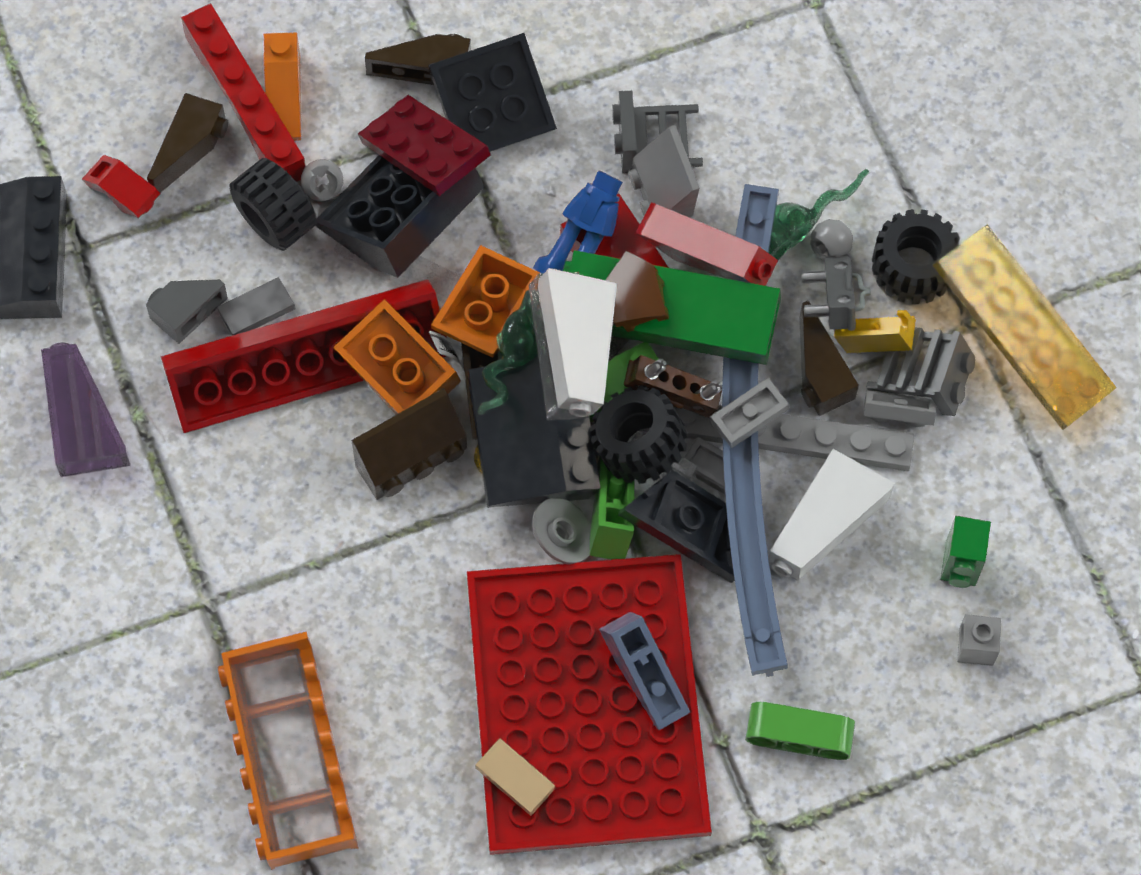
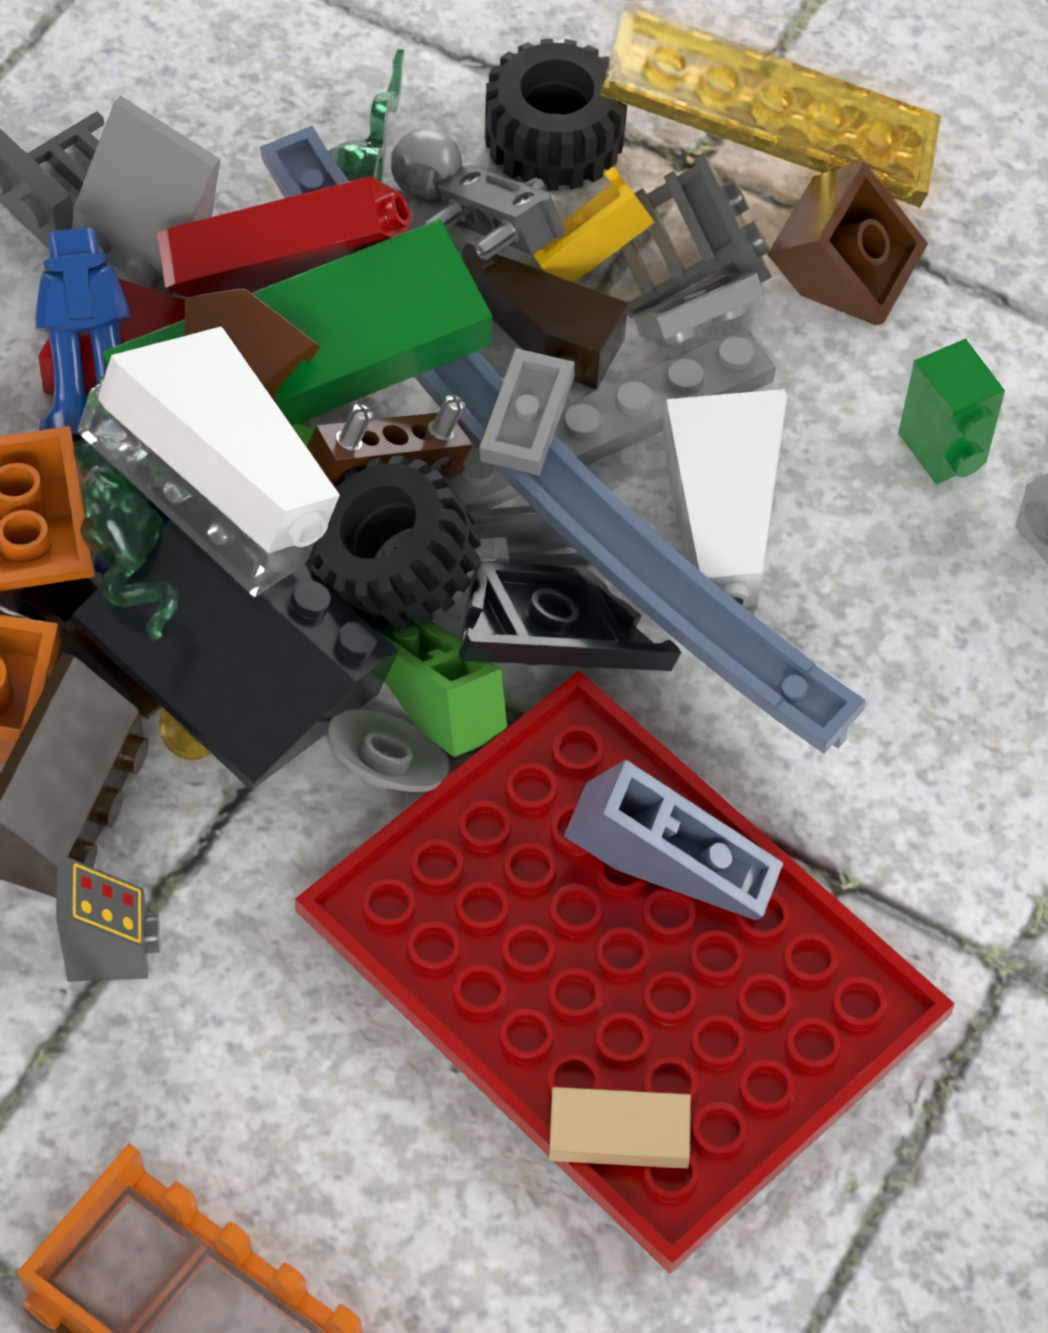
camera: 40 degrees left, 10 degrees down
(374, 524) = (103, 925): none -> dark grey slope
(800, 730) = (943, 788): bright green beam -> none
(1003, 427) = (849, 244): none -> reddish brown slope

